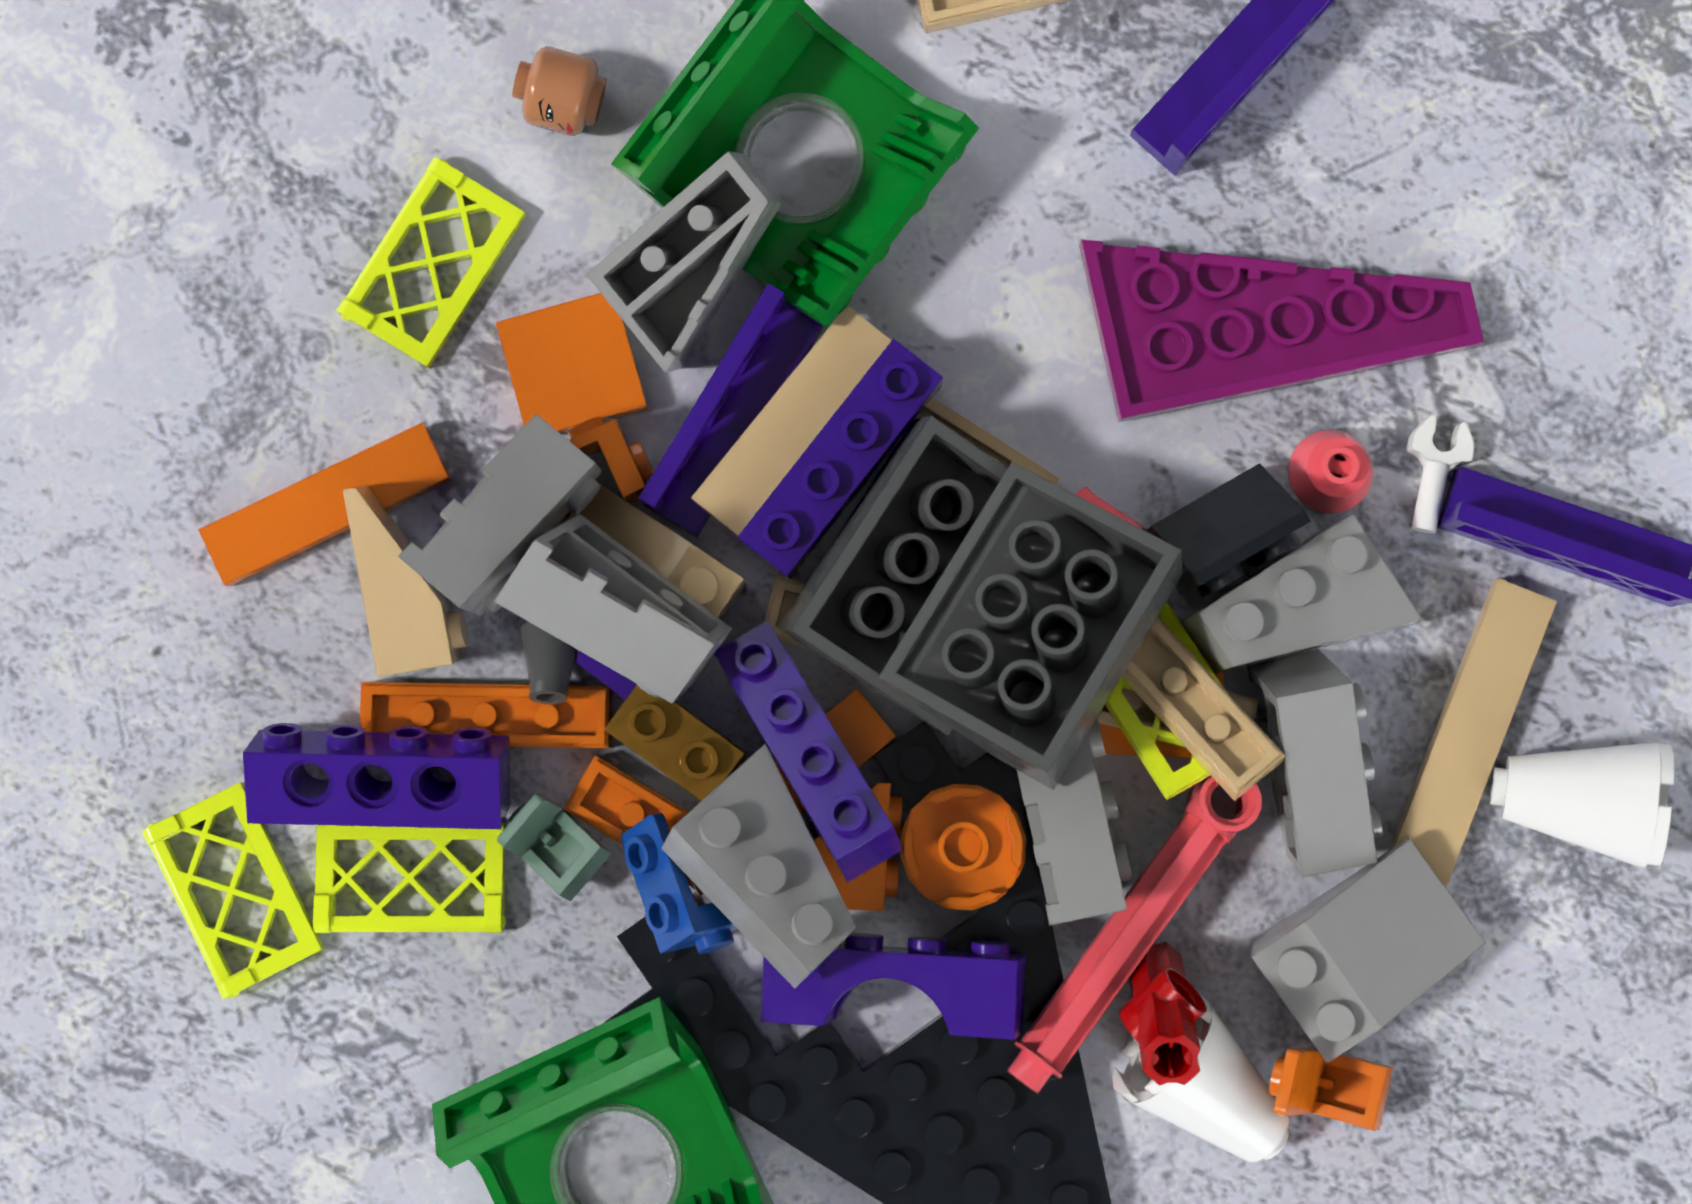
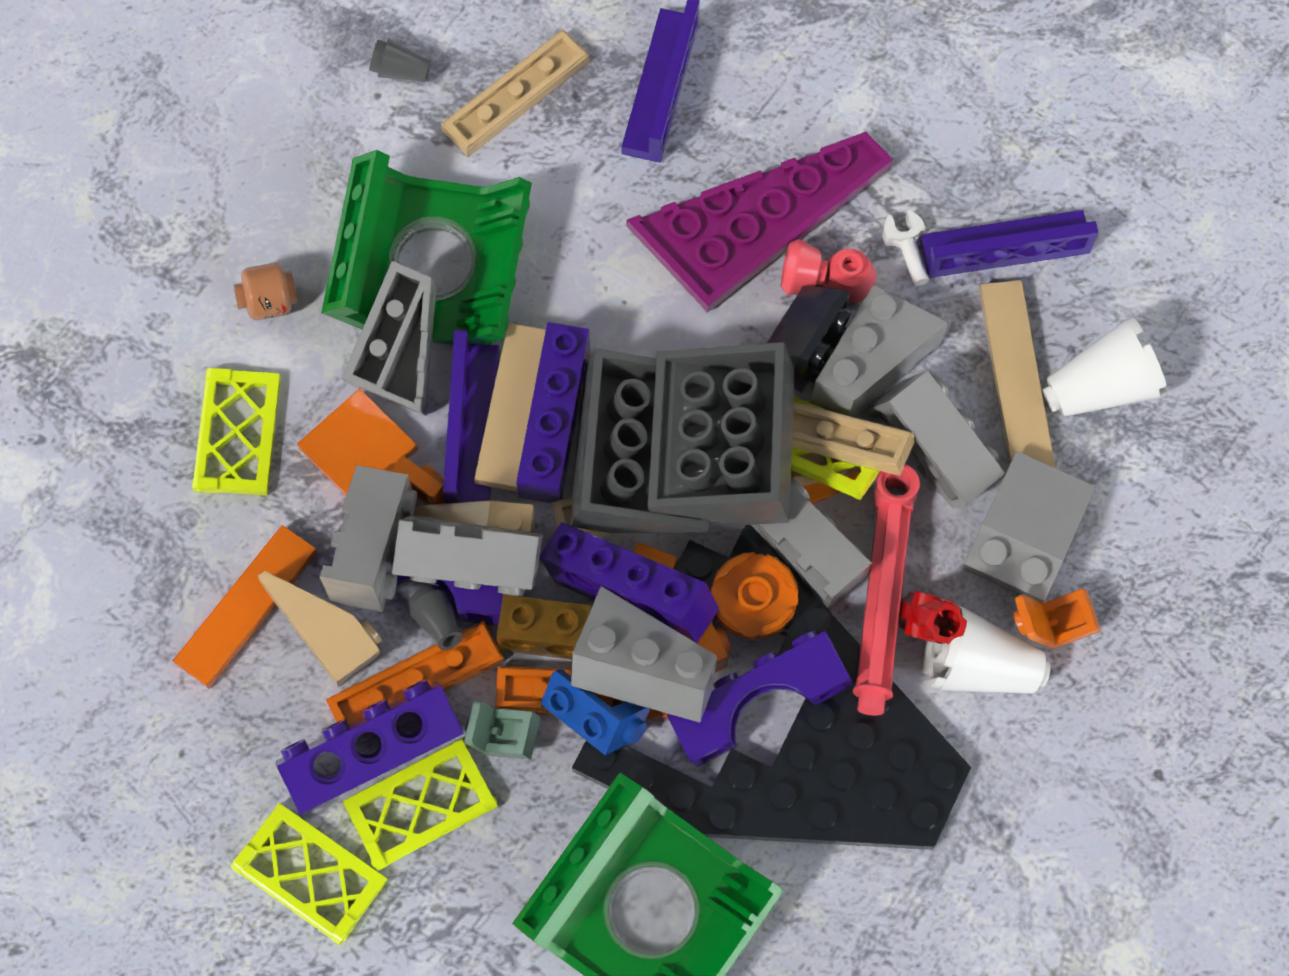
camera: 30 degrees left, 15 degrees down
(1274, 433) = (802, 267): none -> coral cone

